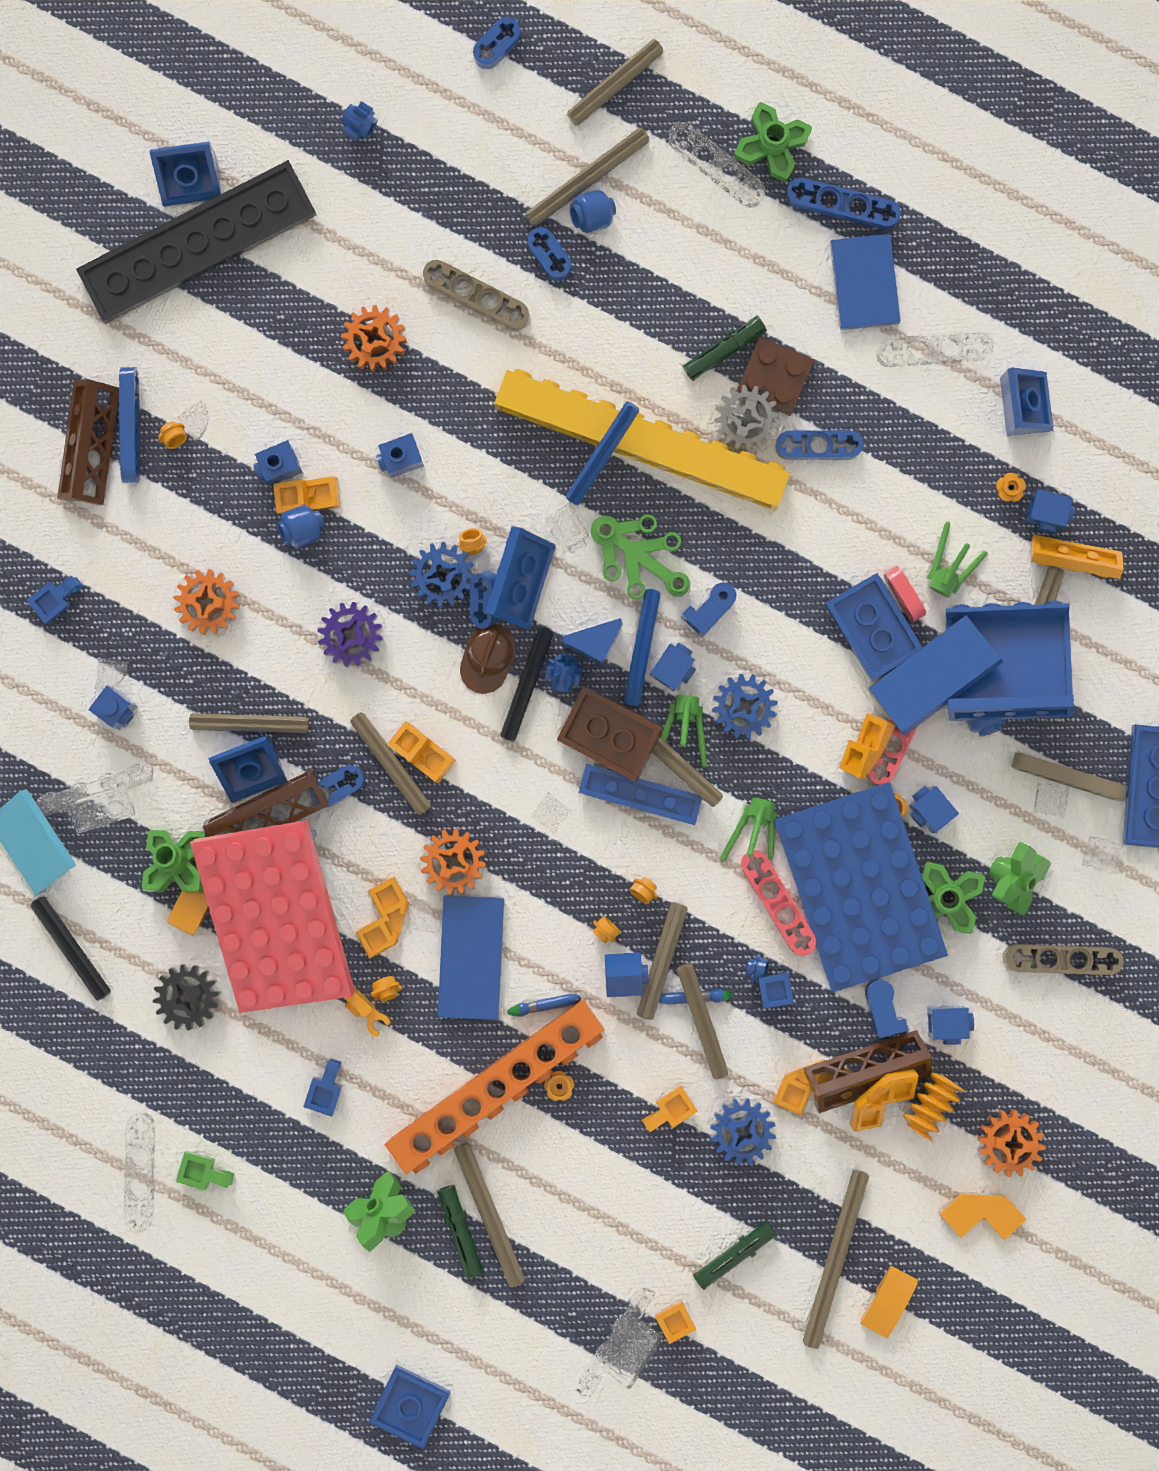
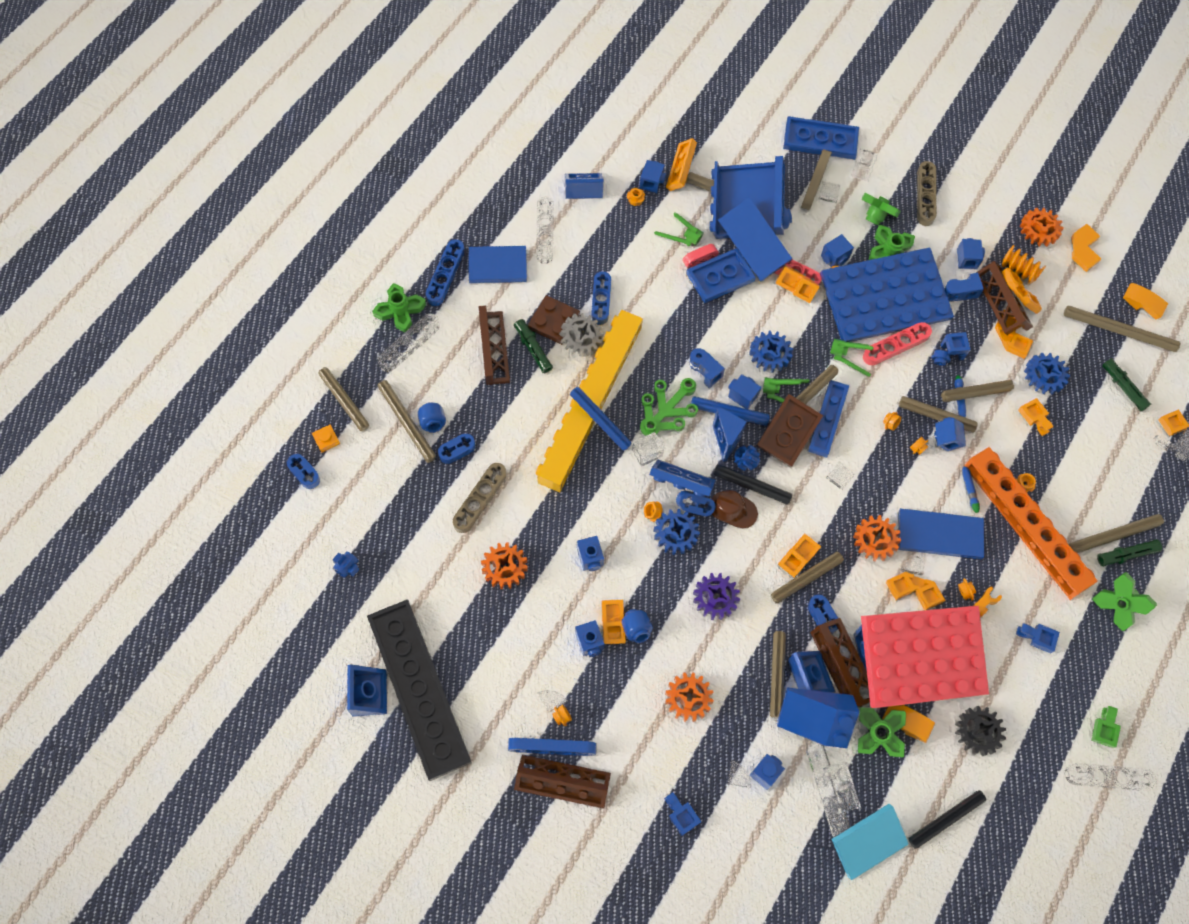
camera: 90 degrees left, 20 degrees down
(184, 774) = (819, 716): none -> blue slope
(551, 66) = (325, 438): none -> light orange plate
(718, 278) = (486, 343): none -> reddish brown fence

